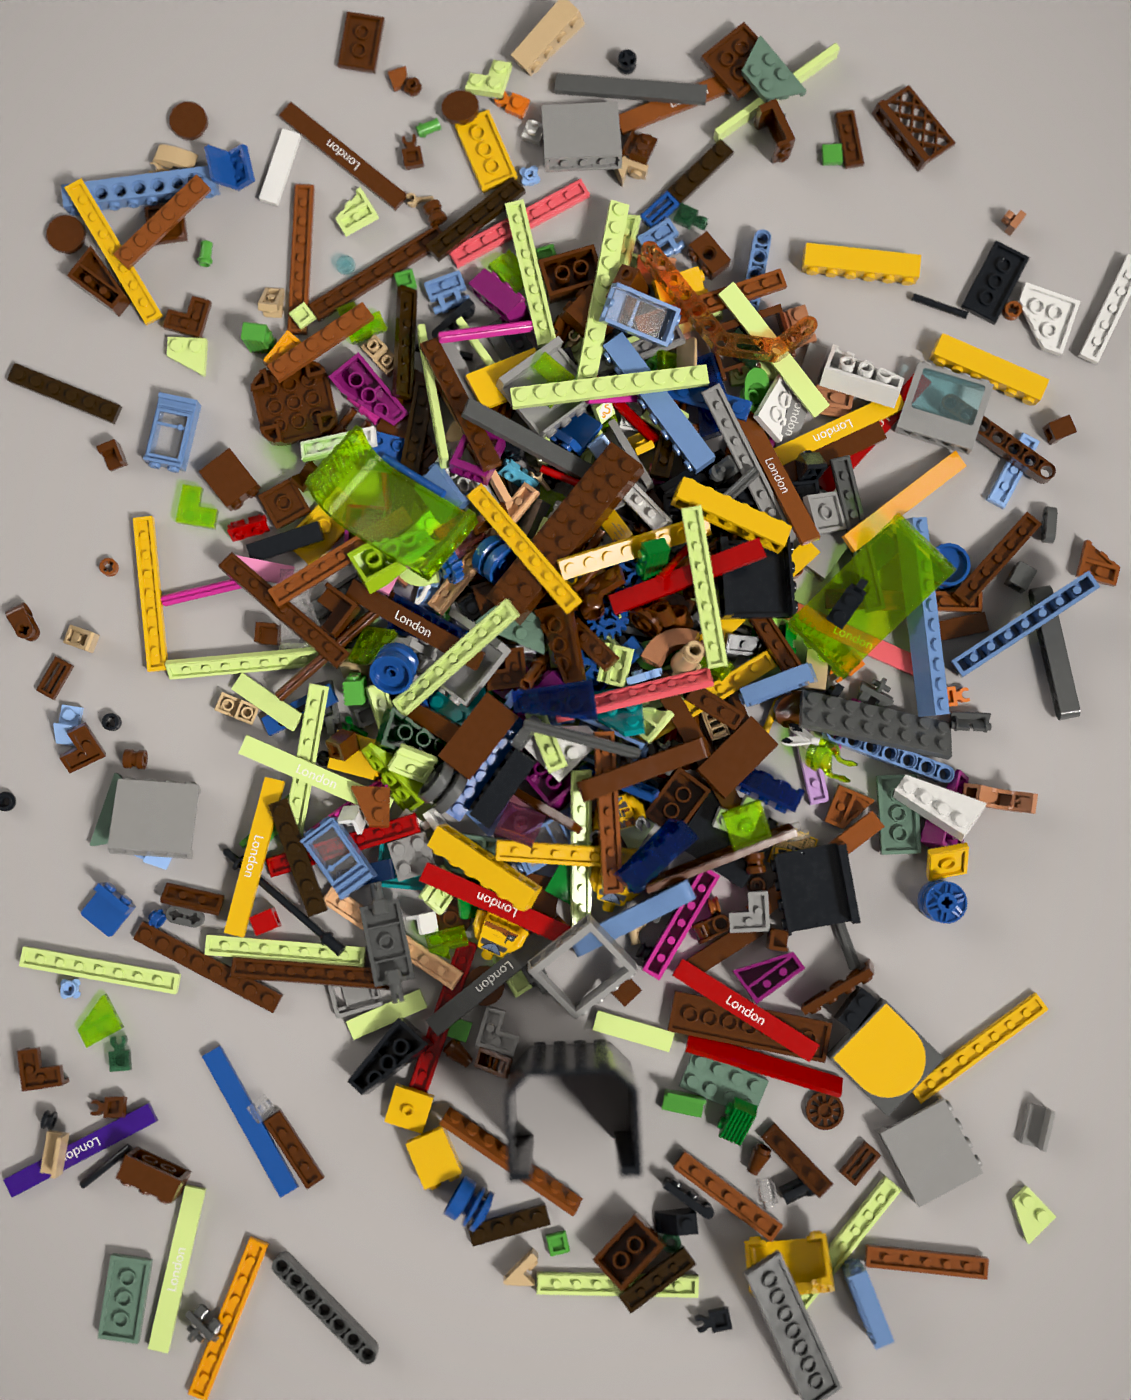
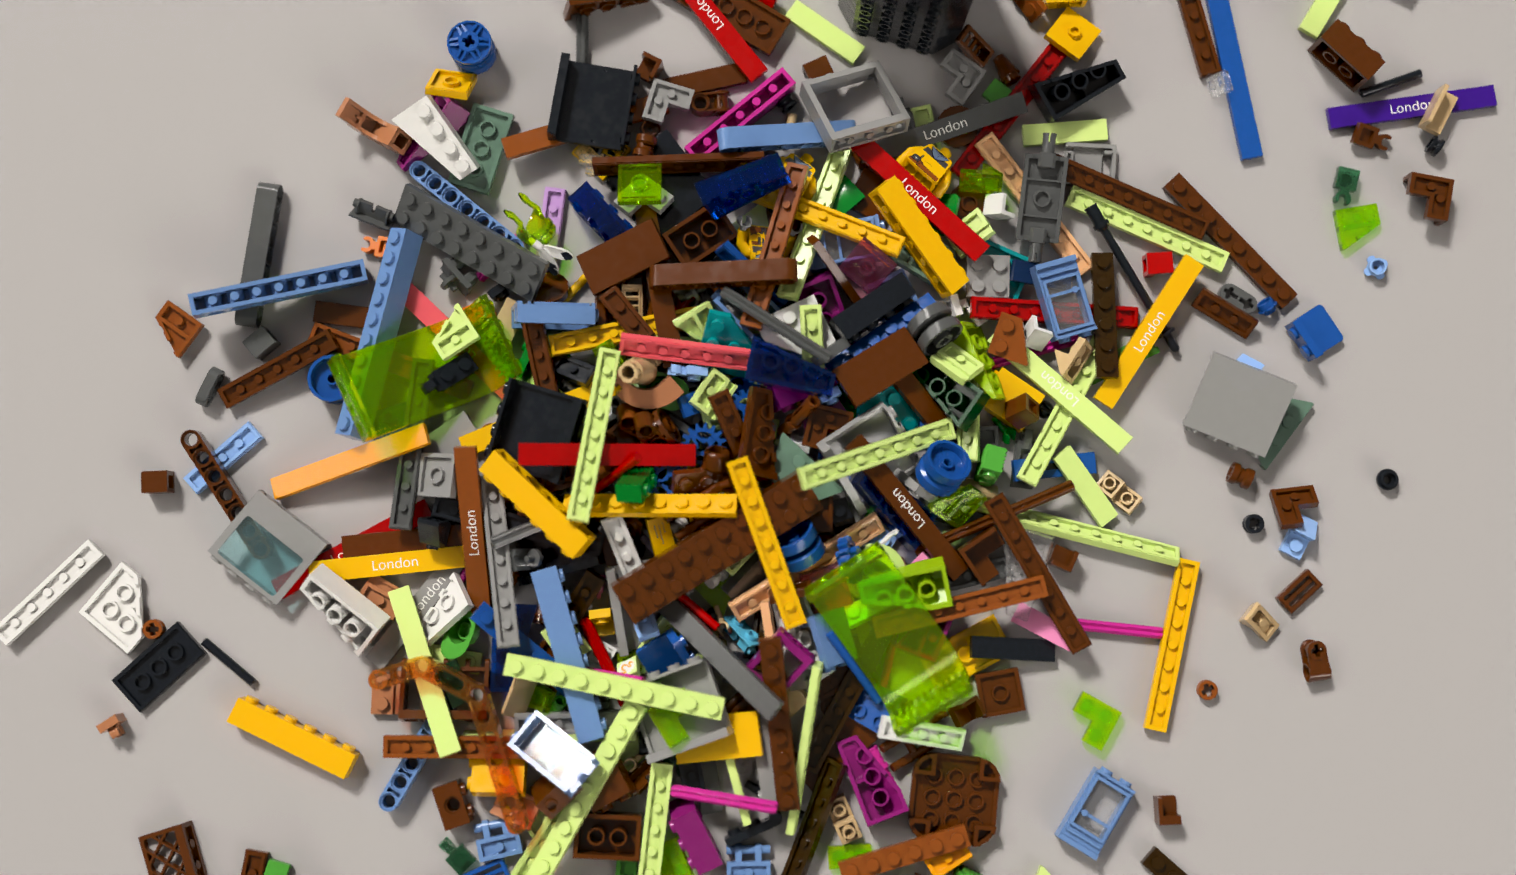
camera: 160 degrees left, 0 degrees up
(100, 970) = (1340, 275): yellowish green plate -> none
(230, 480) = (1049, 737): reddish brown panel -> none
(240, 530) = (1056, 680): red hinge -> none
(311, 804) = (1072, 363): none -> tan slope
(713, 905) = (700, 123): dark orange bush -> none
(769, 975) = (671, 36): magenta wedge -> none
(846, 806) = (531, 174): dark orange wing -> none
(856, 639) = (455, 335): none -> yellowish green wing
(980, 364) = (205, 572): yellow brick -> none

